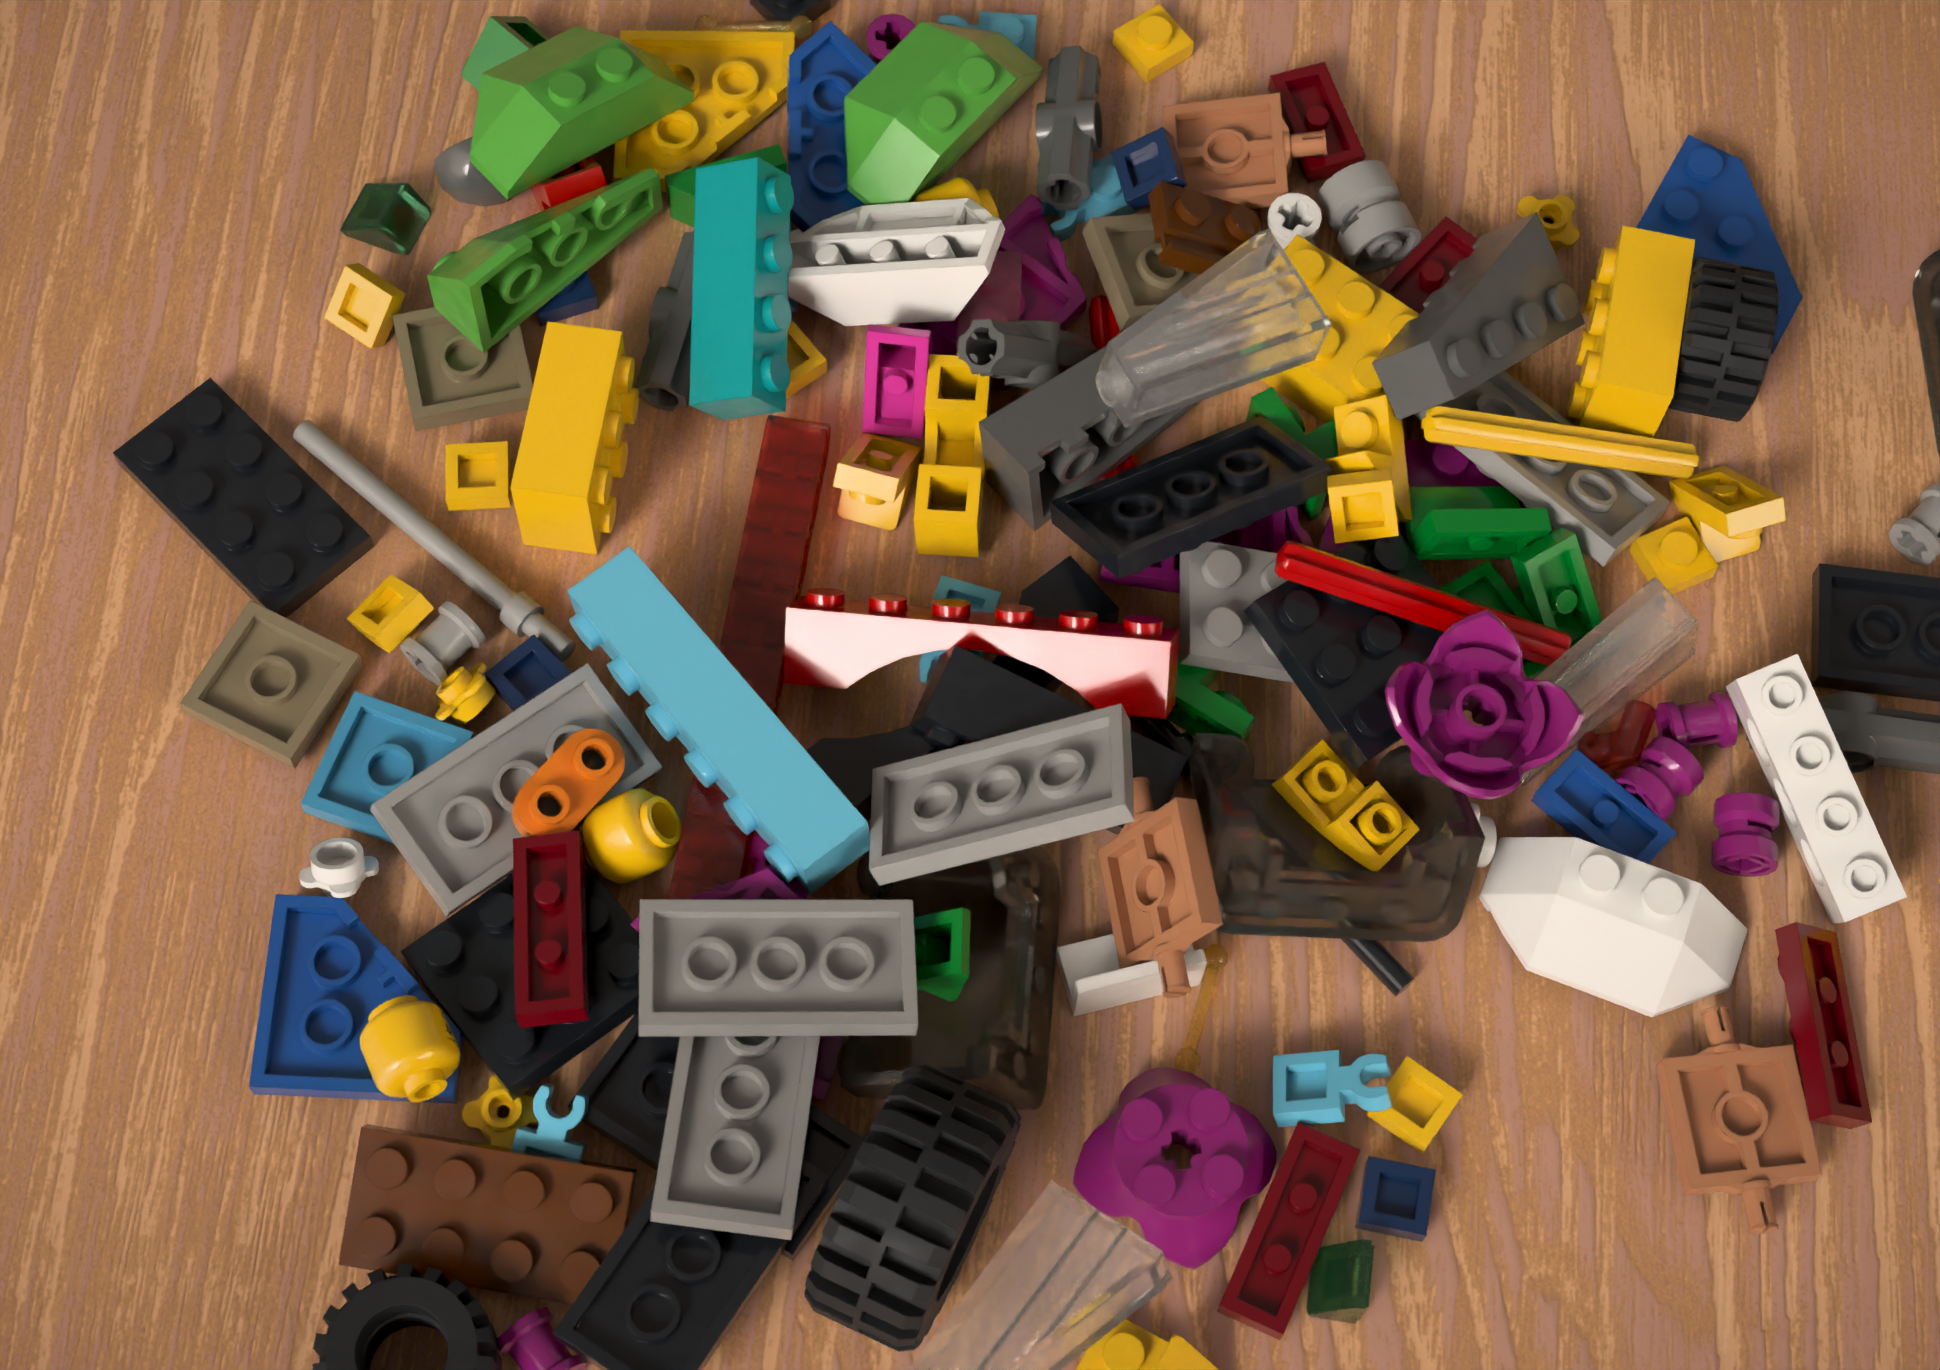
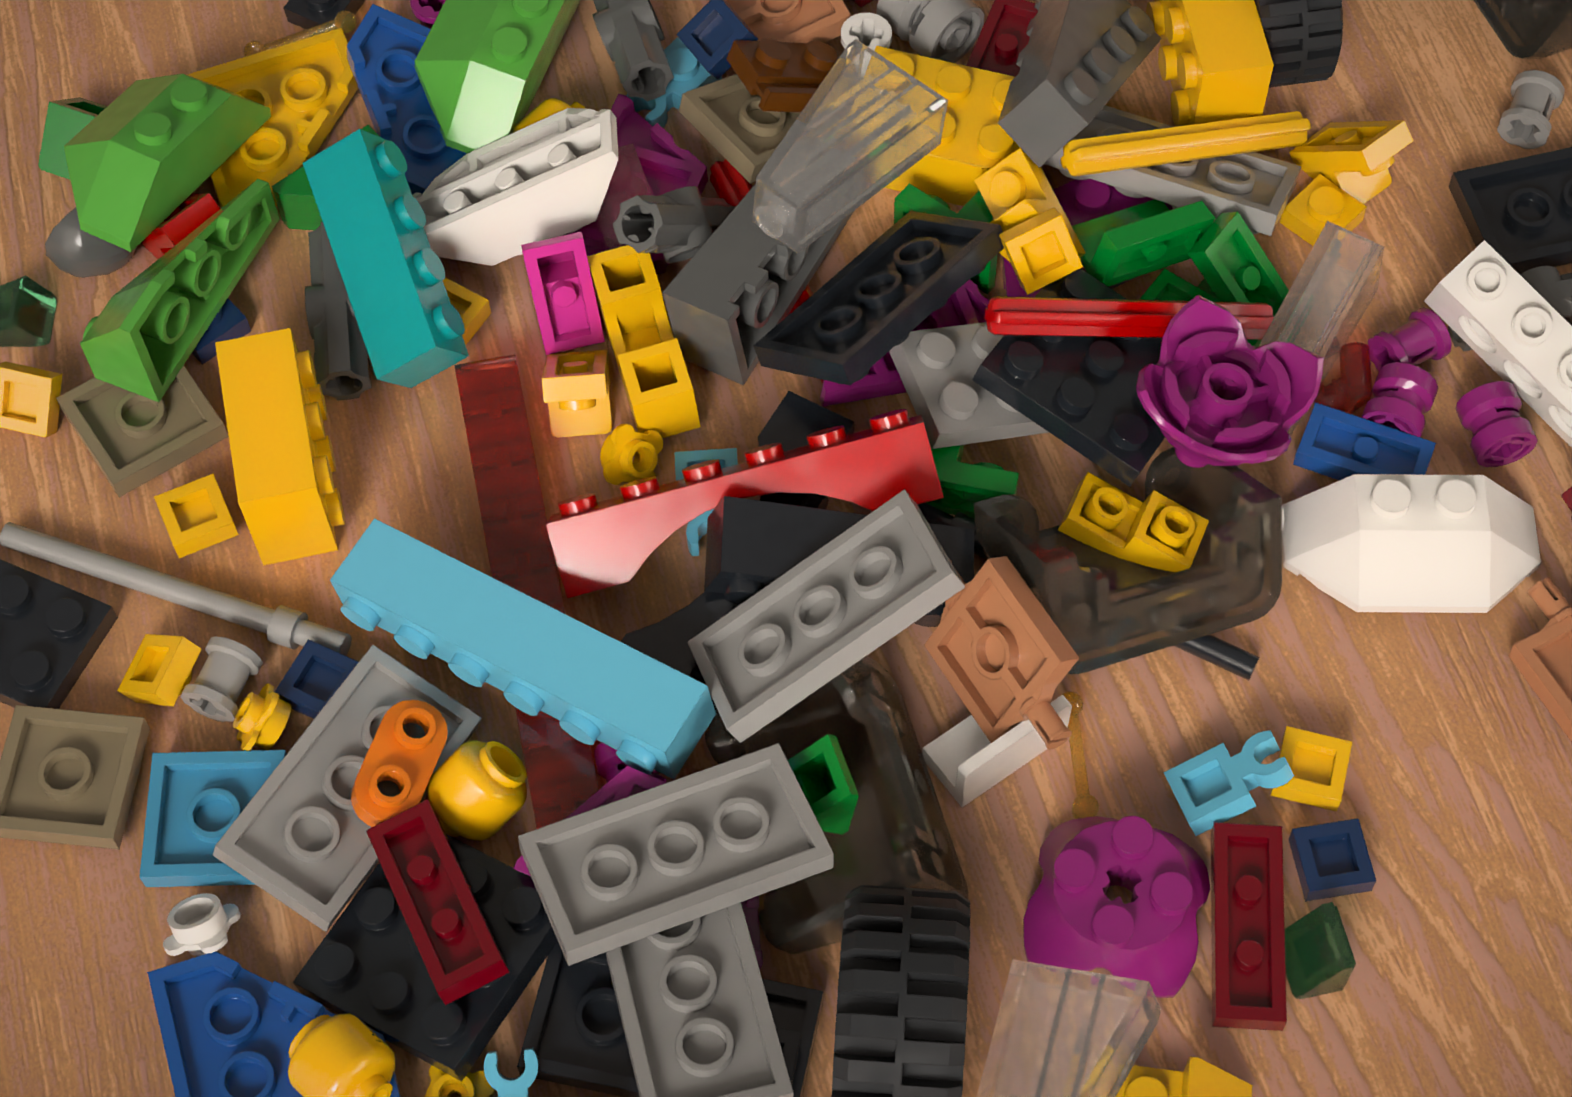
camera: 15 degrees left, 5 degrees down
(890, 554) = (620, 448): none -> yellow plate

